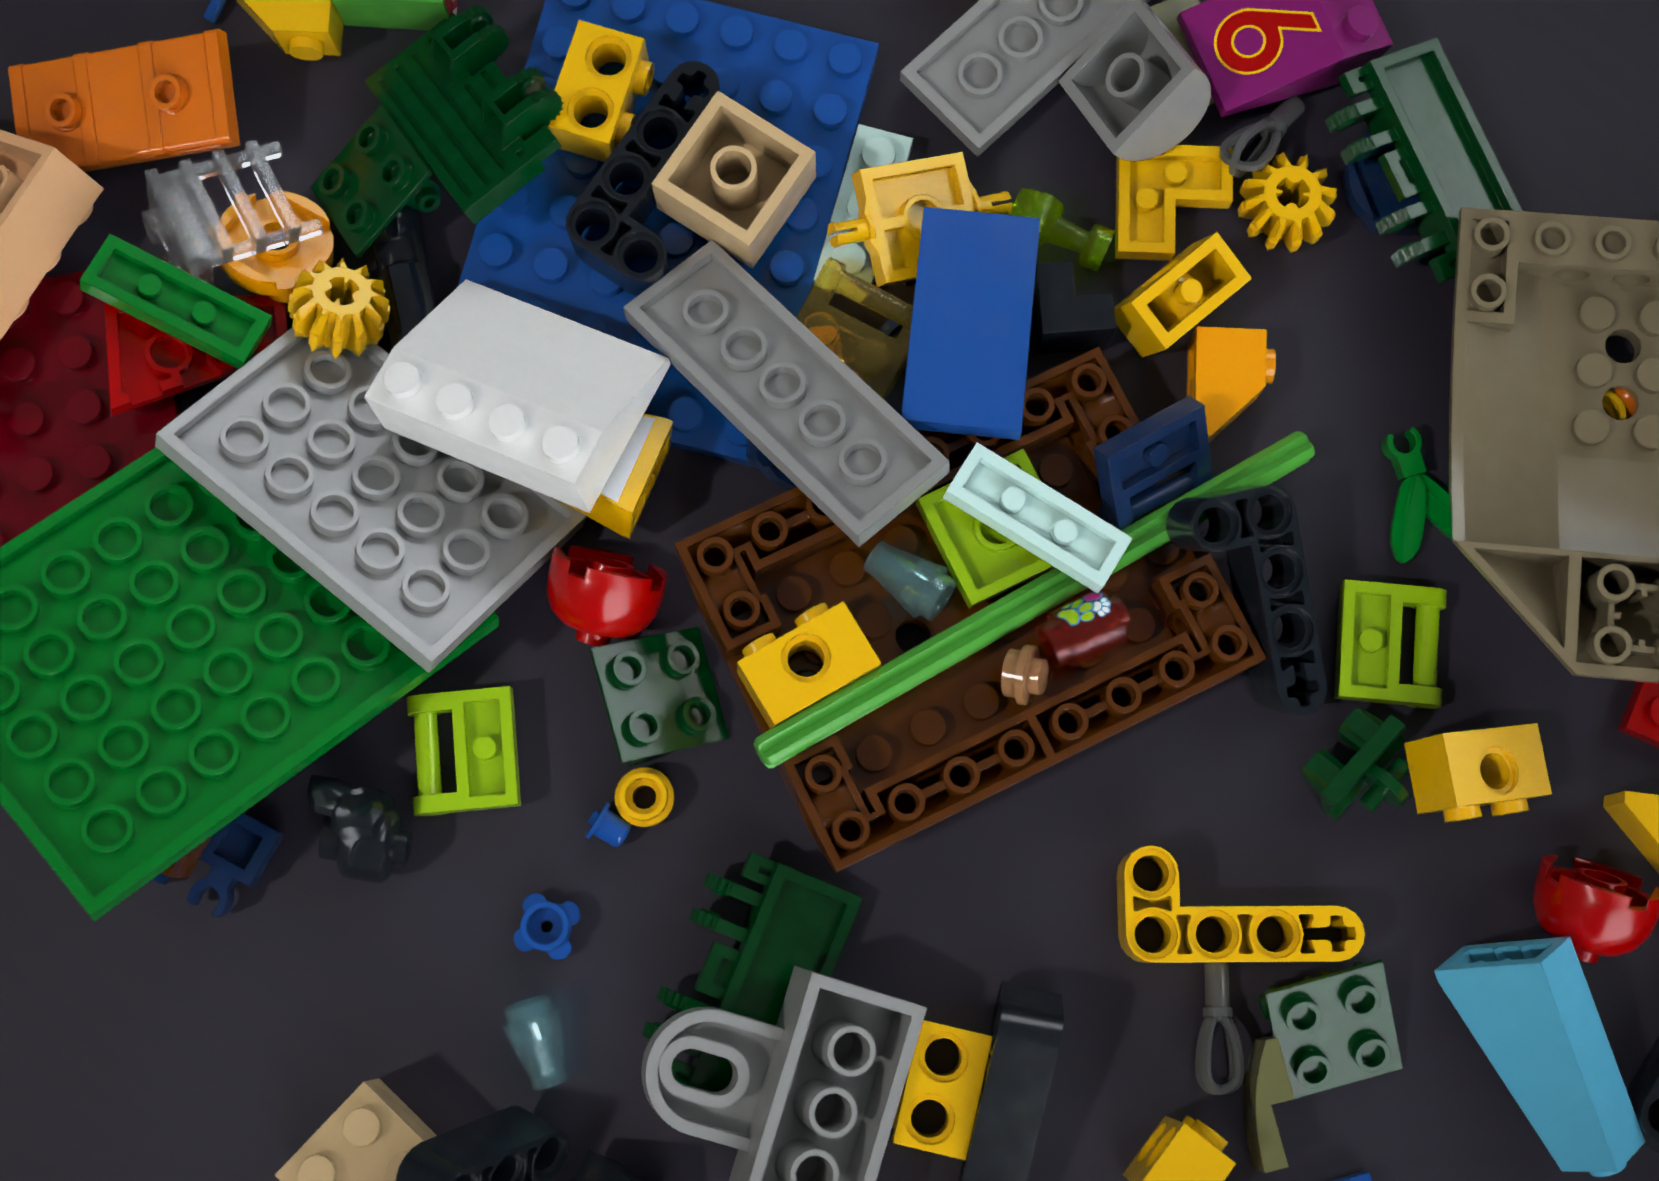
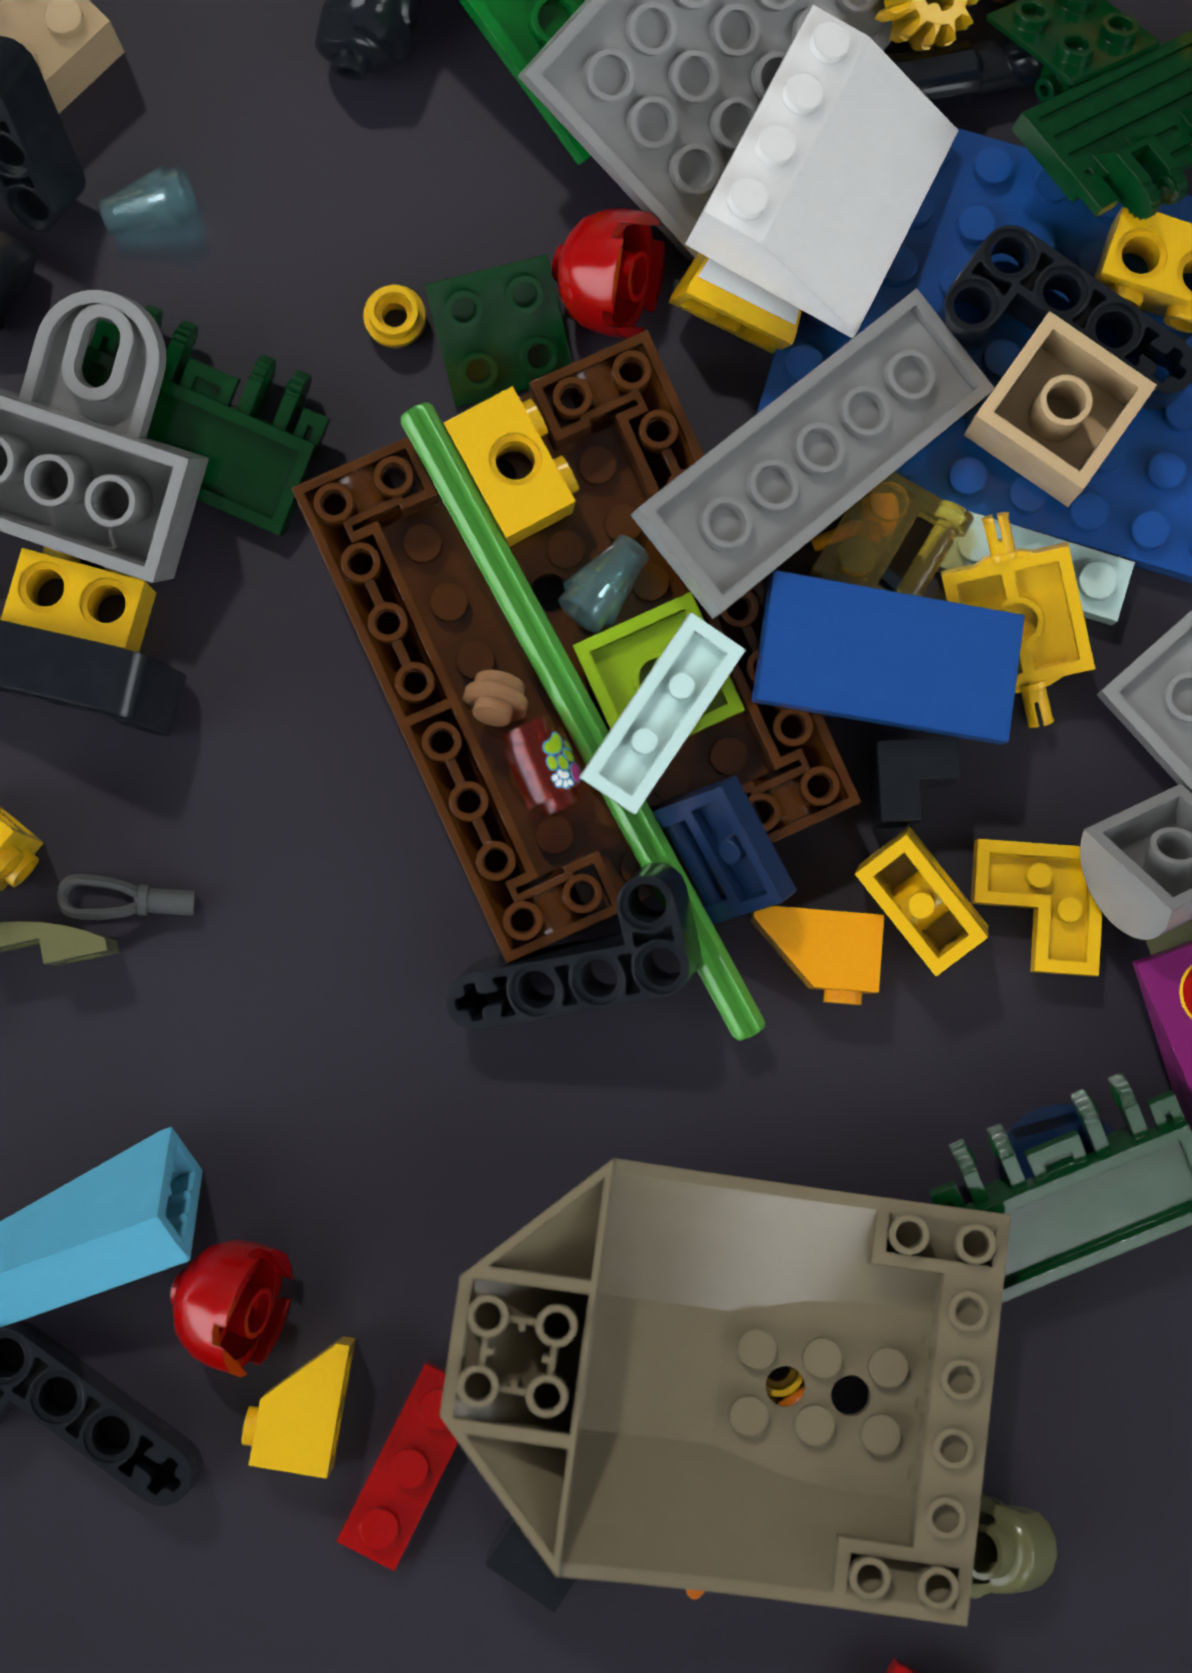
camera: 90 degrees right, 5 degrees up
(482, 748) = (449, 150): lime plate -> none
(539, 910) = (260, 198): blue plate -> none
(608, 826) = (365, 278): blue piece -> none
(1061, 232) = (1012, 763): clear neon green leg -> none
(1237, 922) = (235, 923): yellow beam -> none
(1271, 128) = (1122, 1023): dark grey piece -> none
(1293, 221) = (1054, 1037): yellow gear -> none
(1334, 1027) = (119, 1017): hinge -> none
(1371, 643) = (527, 1091): lime plate -> none
(1375, 747) = (374, 1046): dark green hips -> none
(1415, 500) = (687, 1150): green piece -> none
(1478, 769) = (387, 1154): yellow brick -> none

